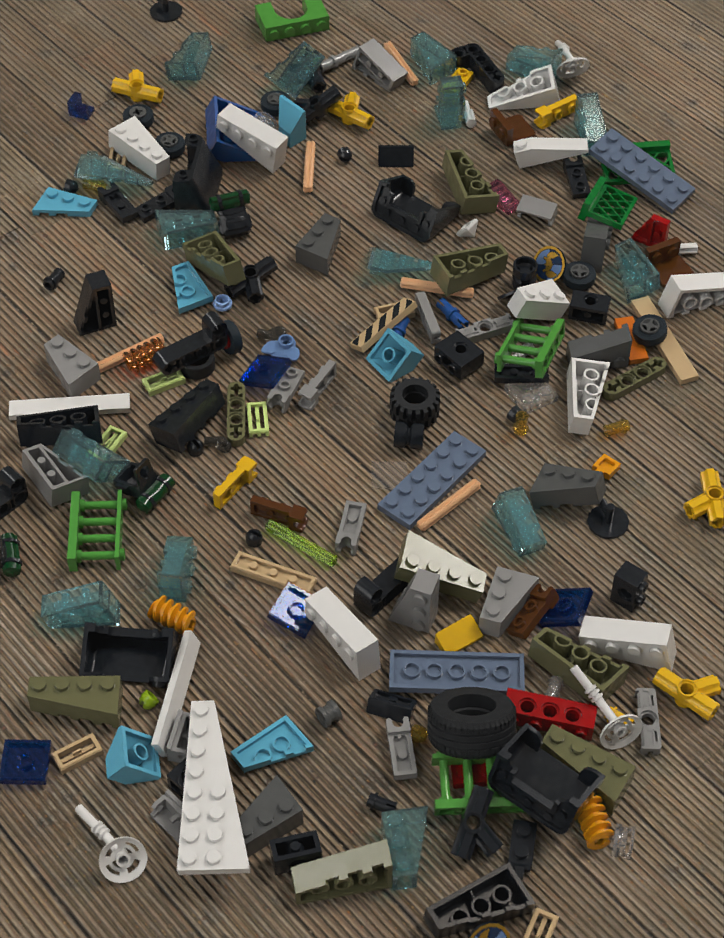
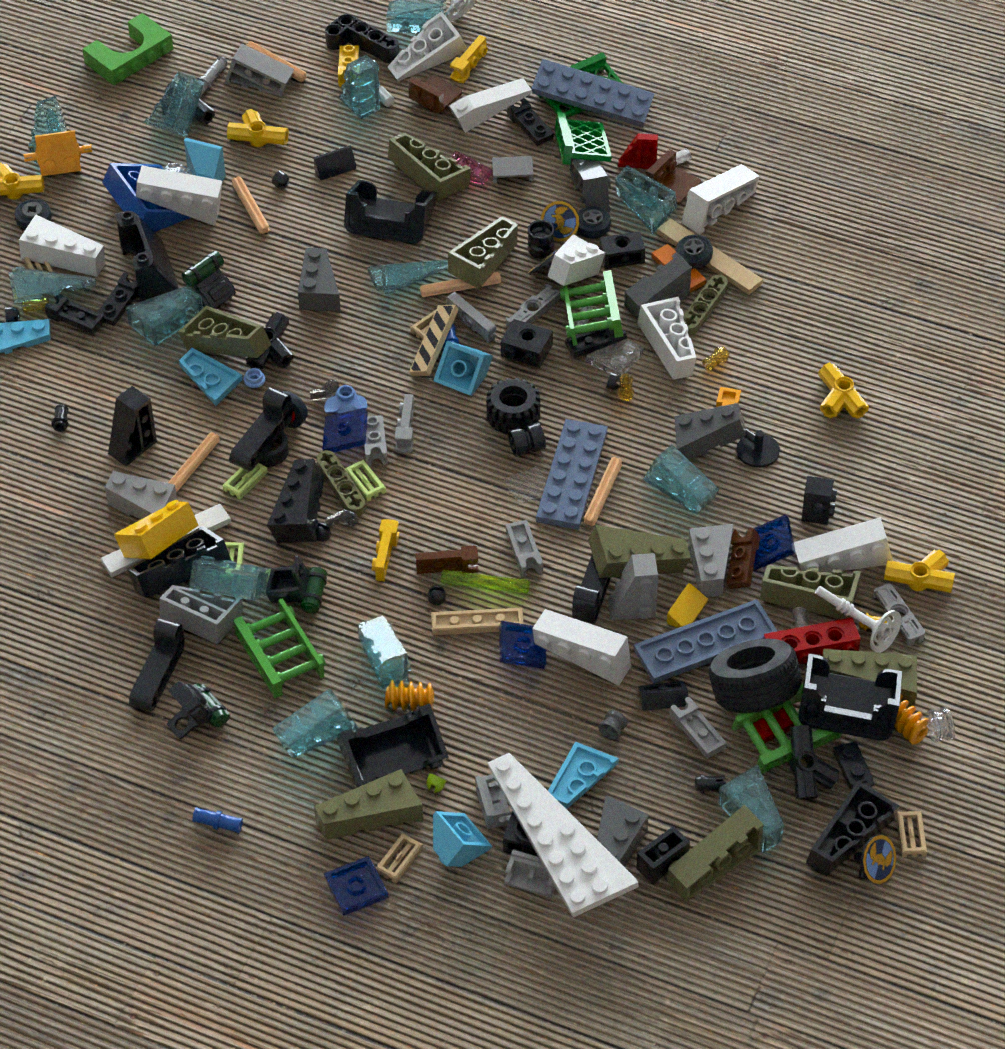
camera: 25 degrees left, 0 degrees up
(59, 394) = (157, 531): none -> yellow wedge
(118, 849) = (503, 925): white dish -> none
(142, 355) = (211, 460): clear orange piece -> none
(172, 143) = (91, 229): black wheel -> none
(176, 691) = (459, 765): white tile -> none
(184, 76) = (58, 153): none -> light orange plate
(270, 102) = (170, 149): black wheel -> none
(318, 105) = (225, 133): black piece -> none
(418, 733) = (705, 708): clear yellow hinge -> none
(432, 57) = (307, 43): clear light blue wedge -> none
(452, 313) = (493, 305): blue pin -> none
(468, 229) = (454, 213): white slope -> none
(589, 118) = (511, 57): clear light blue wedge -> none

